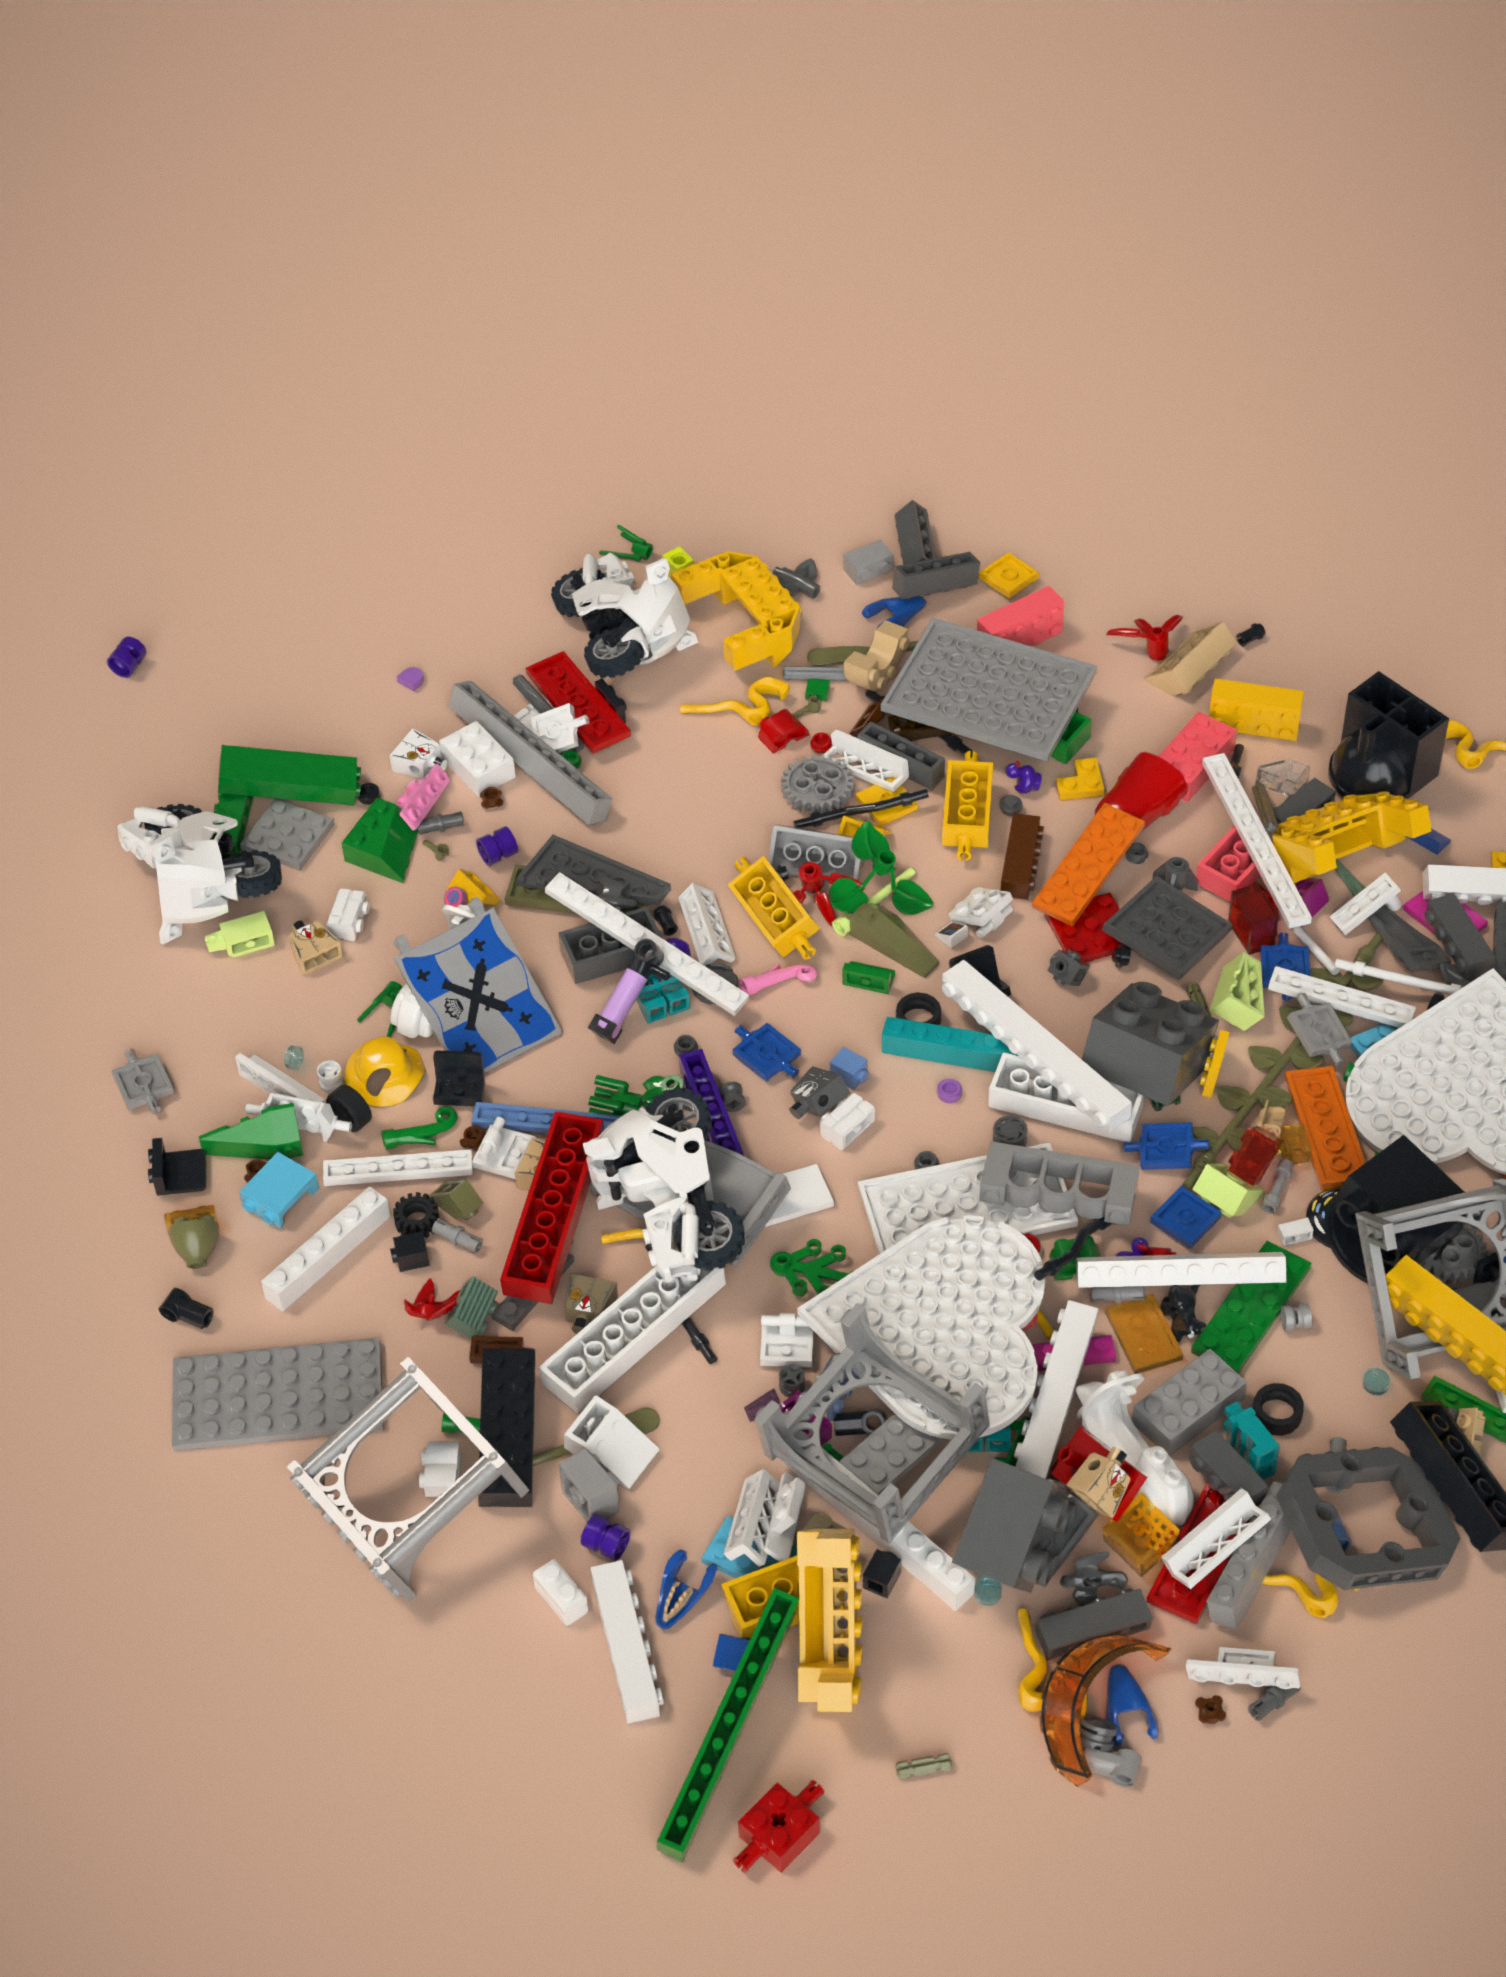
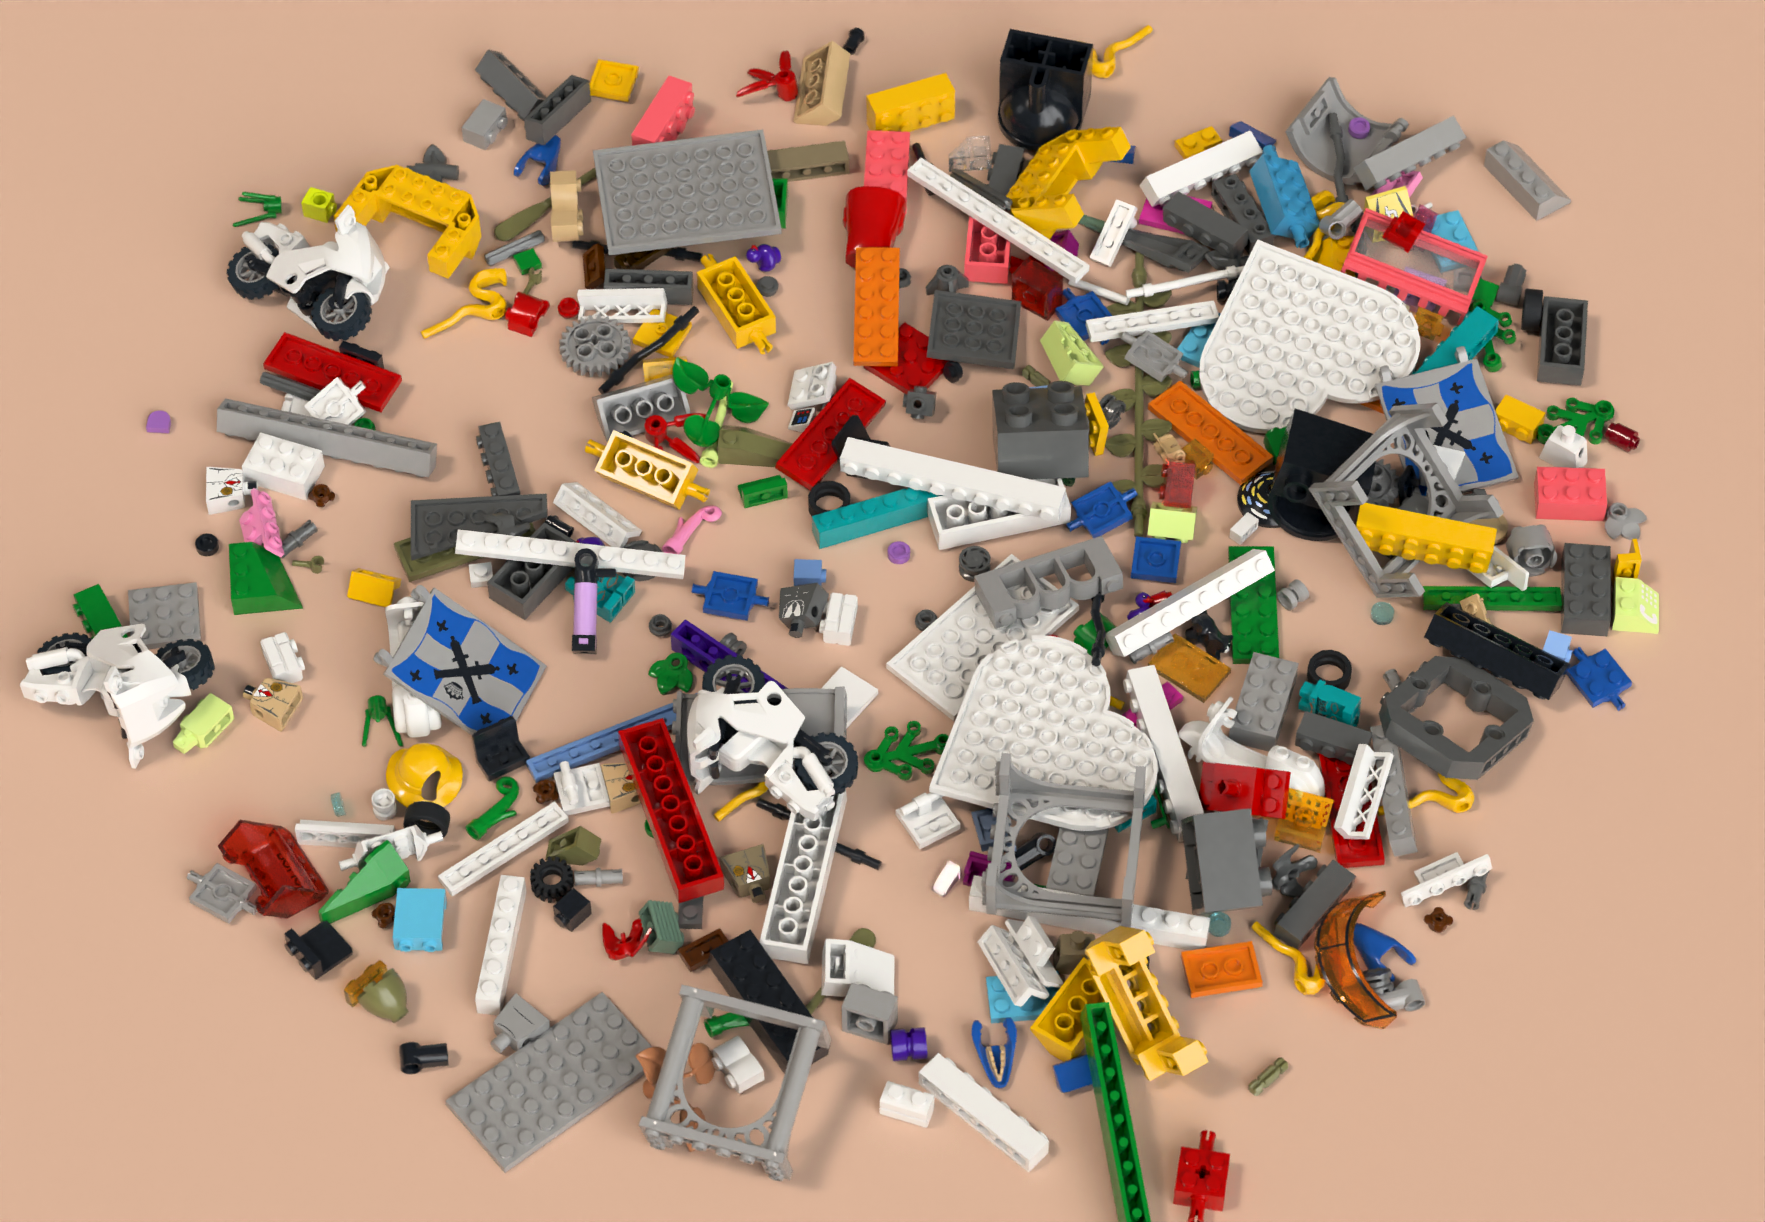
camera: 35 degrees left, 5 degrees up
(201, 1081) = (276, 865): none -> clear red windscreen
(283, 1325) = (517, 1025): none -> light grey torso
(288, 775) = (130, 563): green brick -> none
(407, 1455) = (700, 1062): none -> nougat plant
(455, 896) = (365, 598): medium lavender tile -> none
(498, 845) = (365, 533): dark purple wheel -> none
(567, 922) = (480, 574): none -> white plate
(619, 1101) = (646, 697): green plant -> none
(656, 839) = (497, 460): none -> dark grey brick
(793, 1374) = (954, 841): dark grey wheel -> none
(923, 966) = (812, 454): none -> red plate
(955, 1635) = (1221, 969): none -> orange plate
(1021, 854) = (811, 325): reddish brown brick -> none
(1086, 782) = (813, 236): yellow plate -> none
(1101, 1481) = (1264, 792): tan torso -> none
(1126, 716) = (809, 161): none -> dark tan brick
(1241, 1060) = (1112, 409): none -> dark grey wheel
(1283, 1172) = (1209, 513): light grey bar -> none

